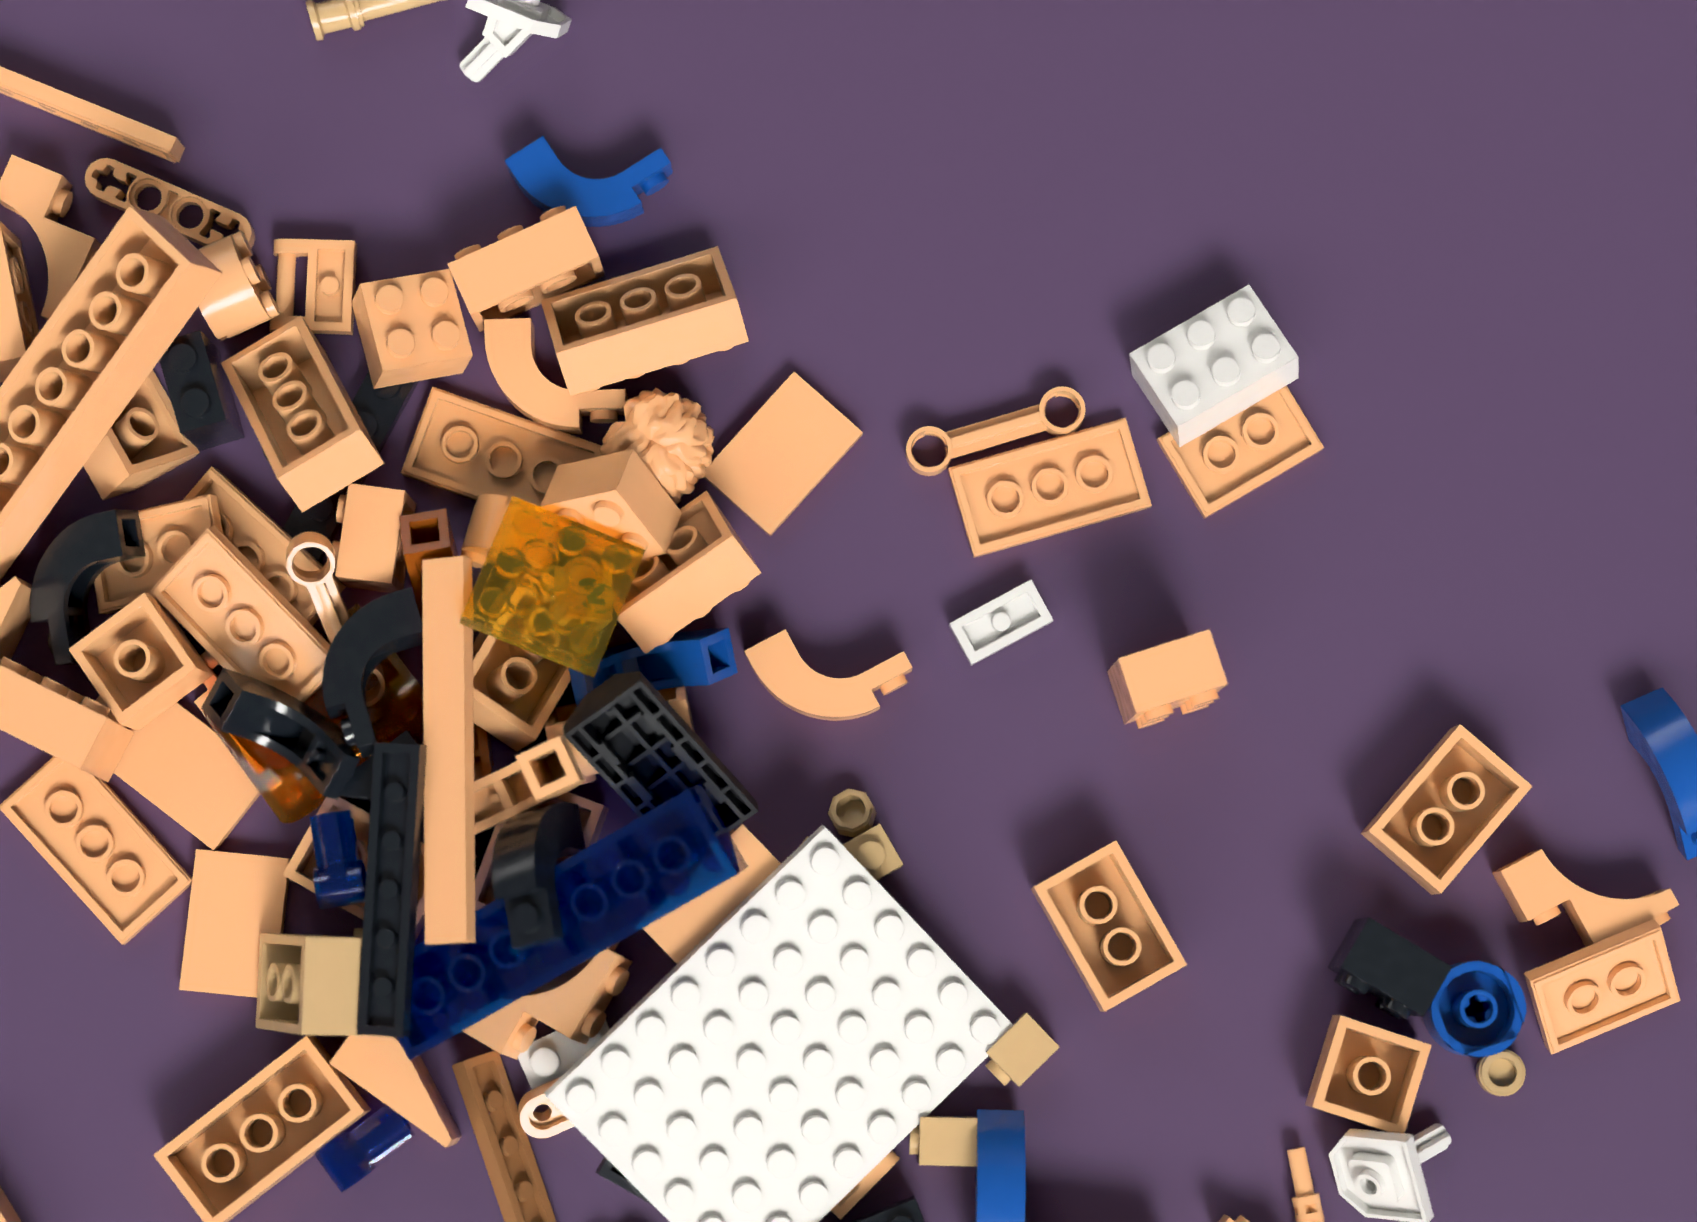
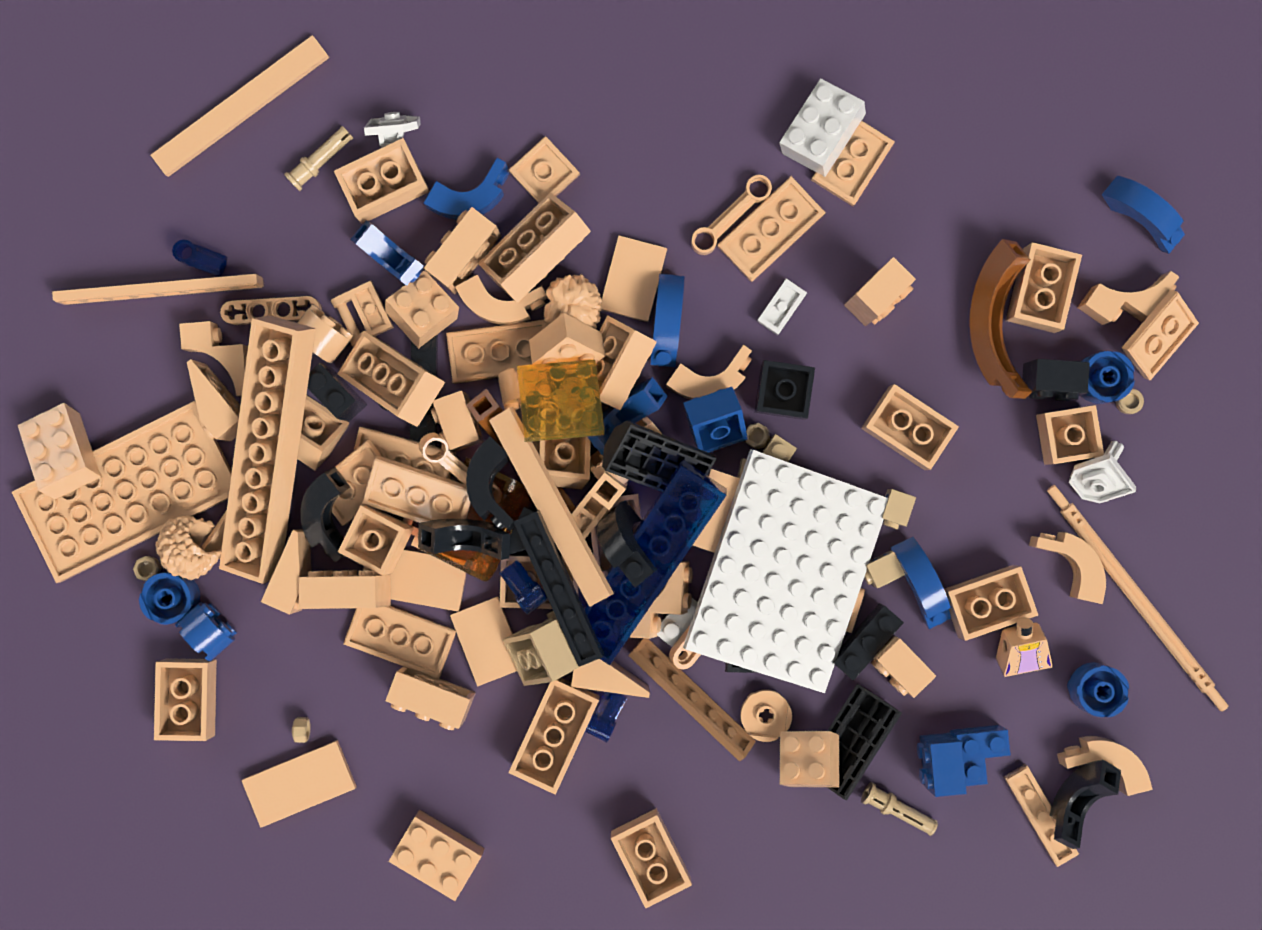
camera: 25 degrees left, 5 degrees up
(91, 967) = (430, 698): none -> light nougat brick
(102, 67) = (200, 258): none -> clear blue piece
(403, 211) = (387, 253): none -> arch
(456, 92) = (381, 181): none -> light nougat slope
(728, 206) = (544, 170): none -> light nougat tile
(793, 751) = (716, 420): none -> blue brick
(801, 547) = (667, 320): none -> blue arch
(933, 759) = (784, 390): none -> black brick
(1329, 810) = (987, 317): none -> dark orange arch

